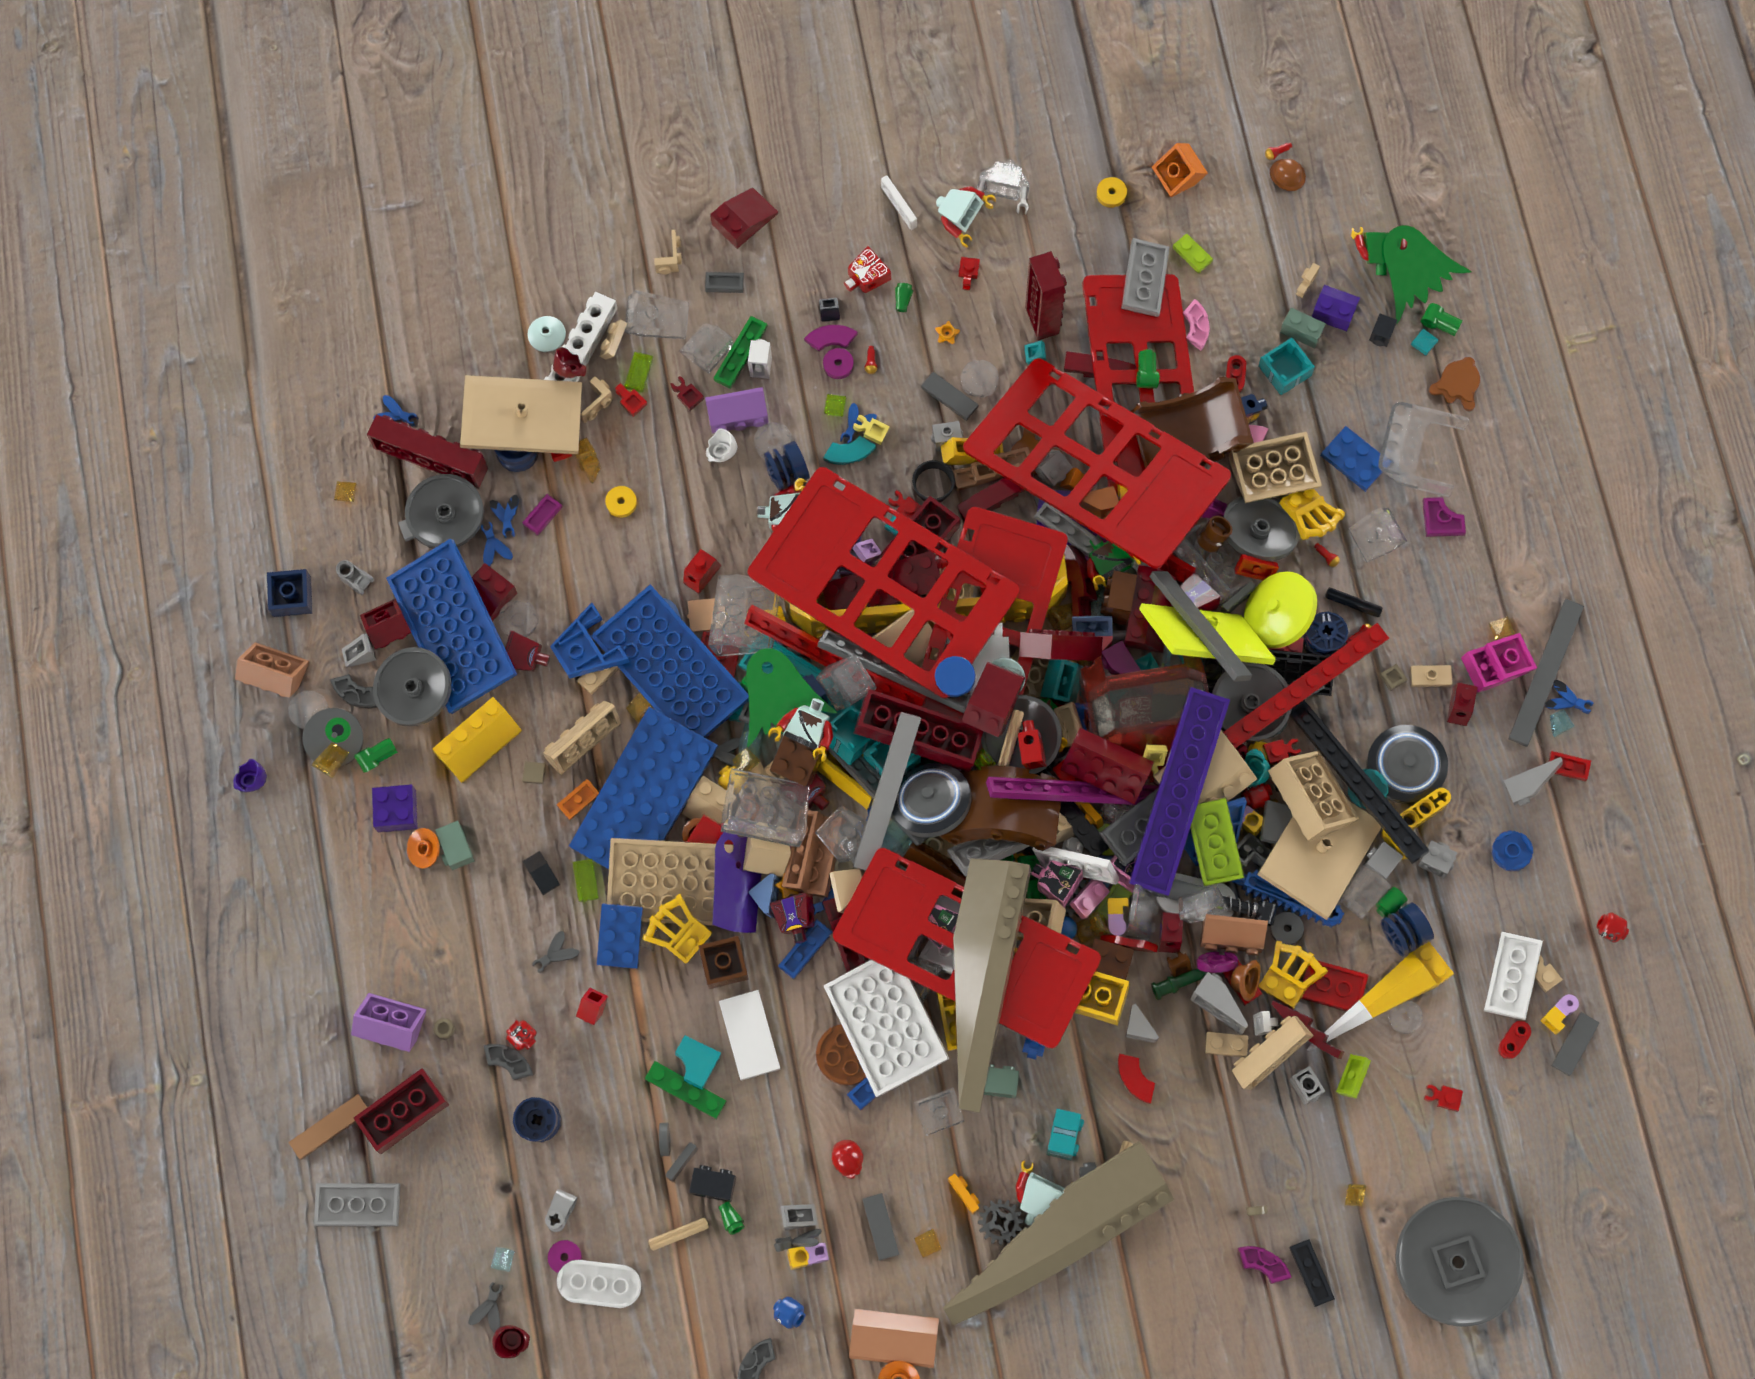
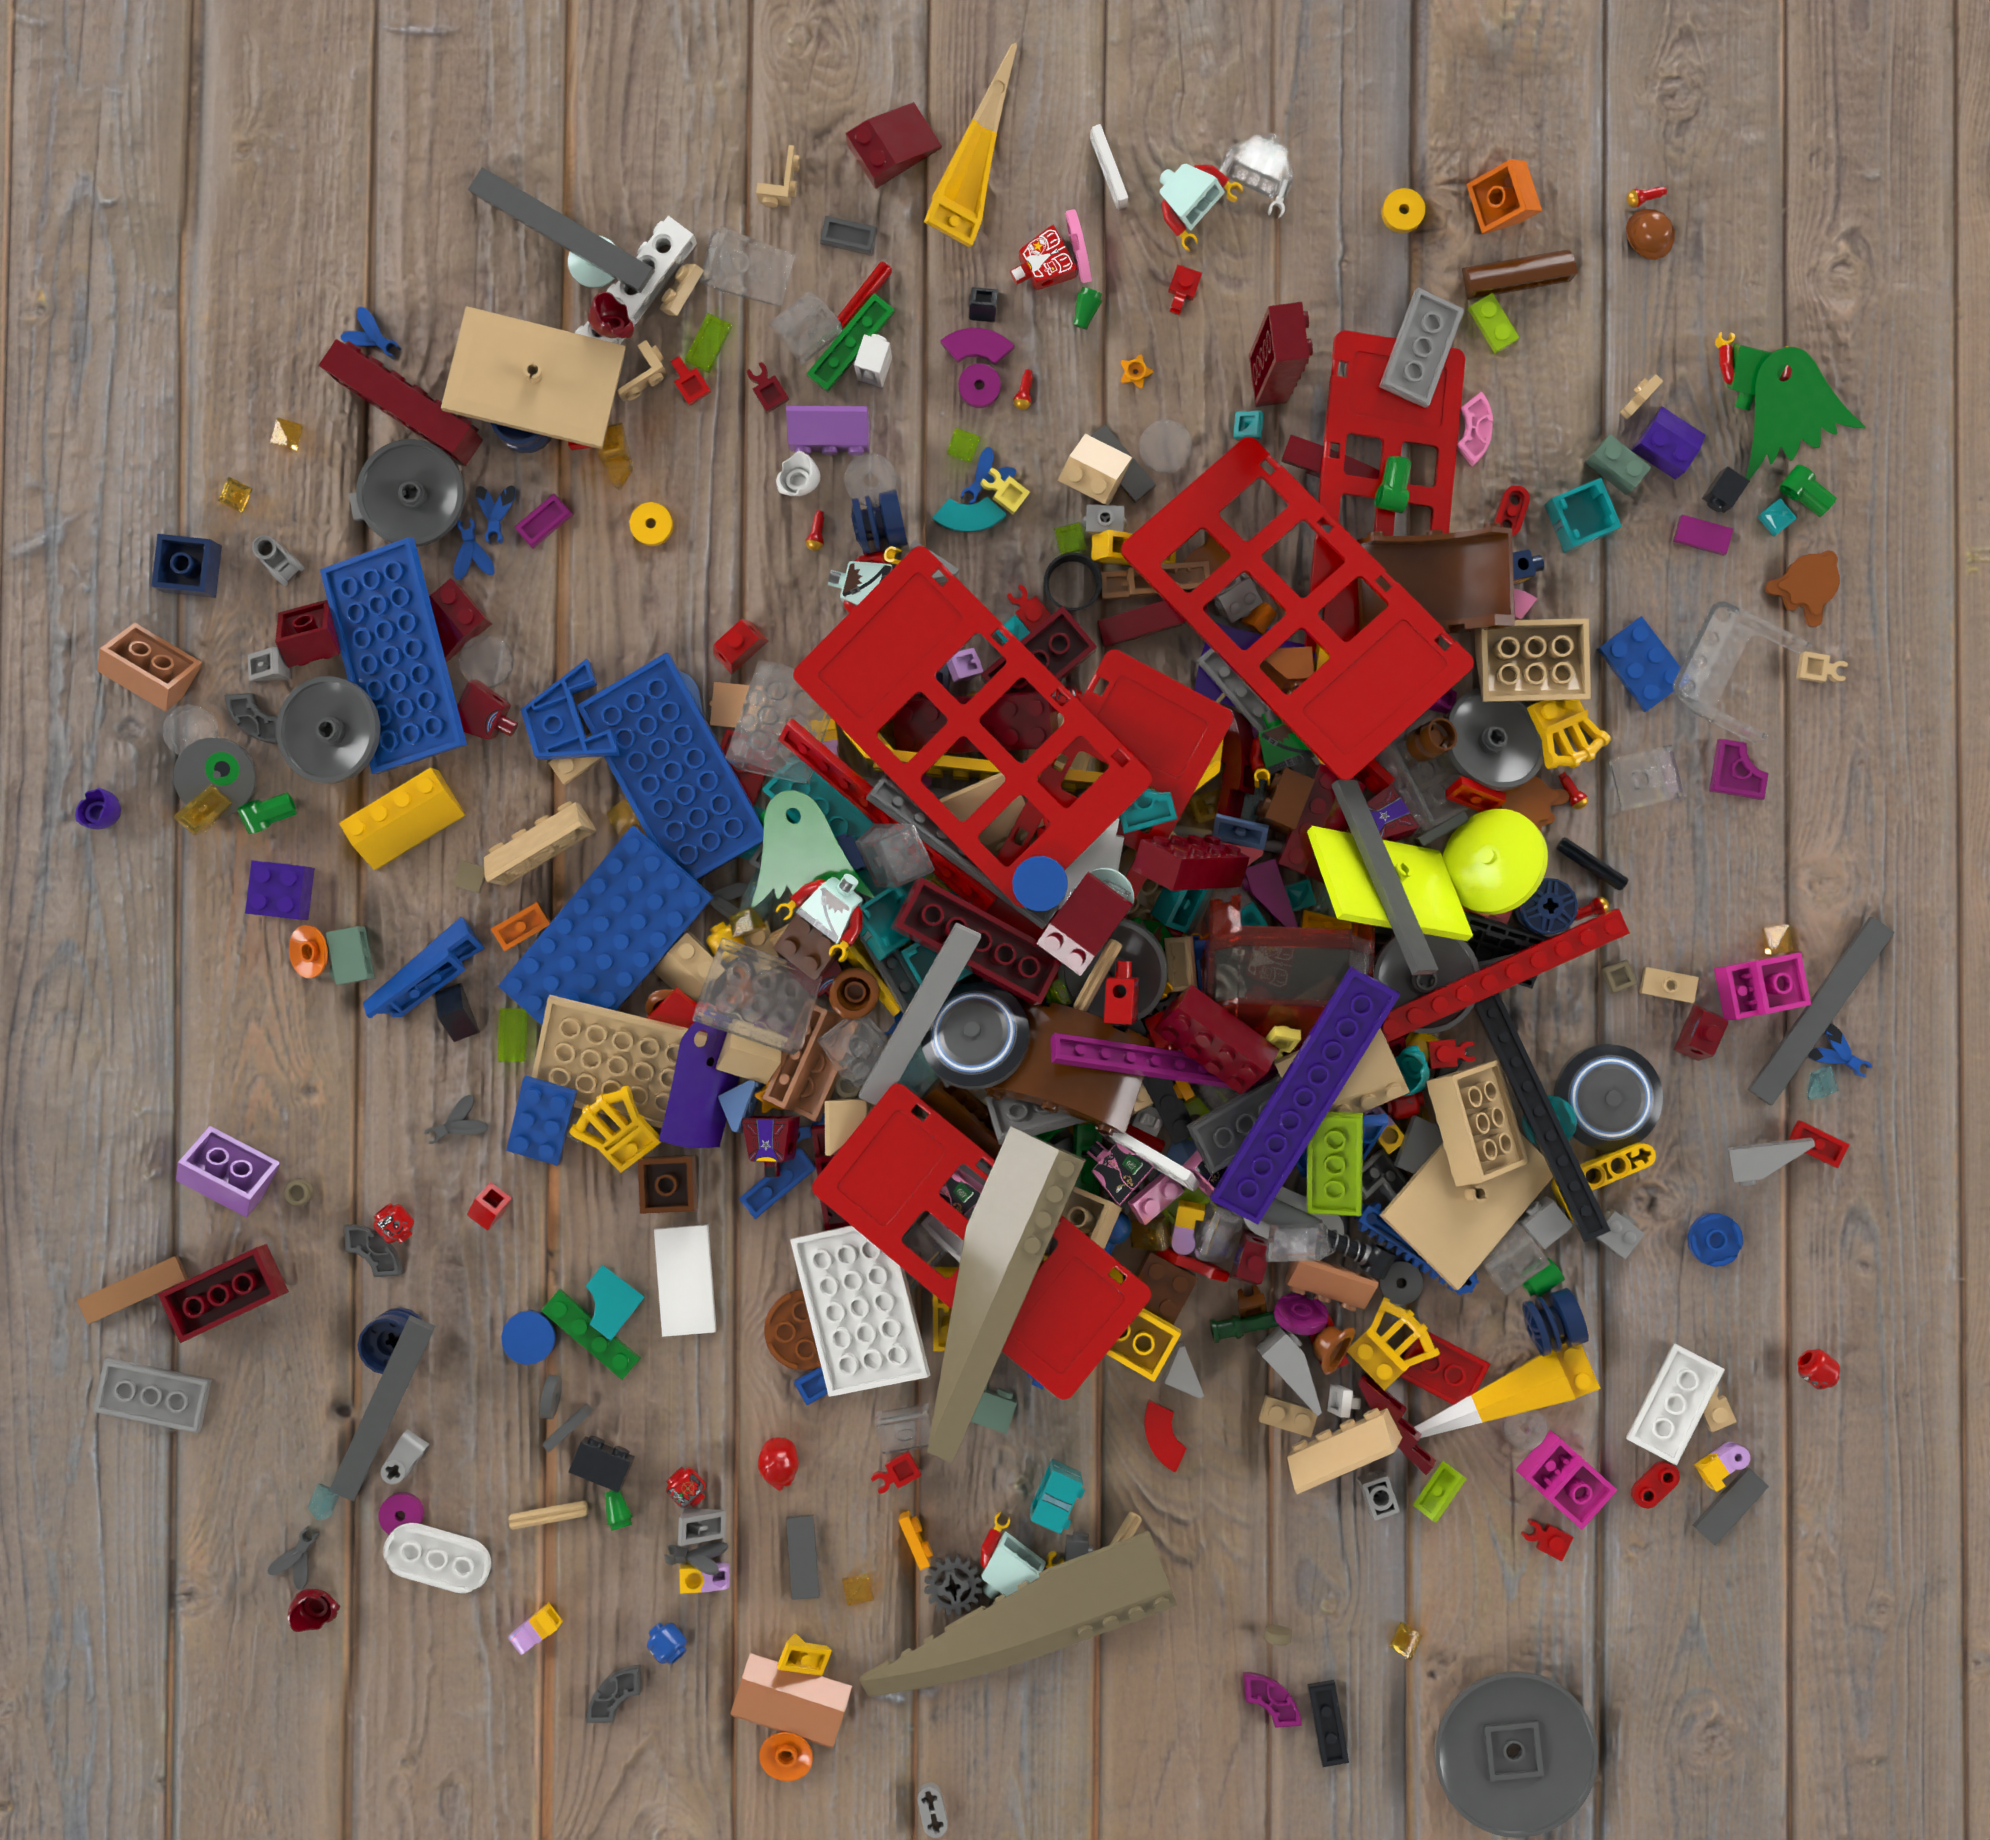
camera: 10 degrees right, 15 degrees up
(315, 538) = (235, 494): none -> clear yellow slope
(513, 847) = (426, 972): none -> blue wedge
(521, 316) = (561, 230): none -> dark grey tile
(538, 1169) = (382, 1408): none -> dark grey tile
(638, 1101) = (528, 1337): none -> blue tile
(684, 1324) = (535, 1629): none -> leg
(741, 489) = (815, 540): none -> red piece
(747, 311) = (869, 287): none -> red axle
(780, 1189) = (686, 1487): none -> red head
(798, 238) = (961, 193): none -> yellow plate
(835, 793) = (854, 993): none -> dark orange hat
(888, 257) = (1078, 246): none -> bright pink tile
(897, 1300) = (804, 1657): none -> yellow slope
(924, 452) = (1070, 538): none -> clear neon green tile
(932, 402) = (1095, 469): none -> tan slope
(941, 1144) = (900, 1471): none -> red plate
(1021, 614) = (1148, 810): none -> teal tile
(1202, 217) = (1519, 274): none -> reddish brown brick
(1302, 564) = (1534, 801): none -> dark orange tile
(1375, 364) = (1703, 535): none -> magenta tile
(1446, 1048) = (1566, 1480): none -> dark pink slope
(1479, 436) = (1816, 668): none -> tan plate

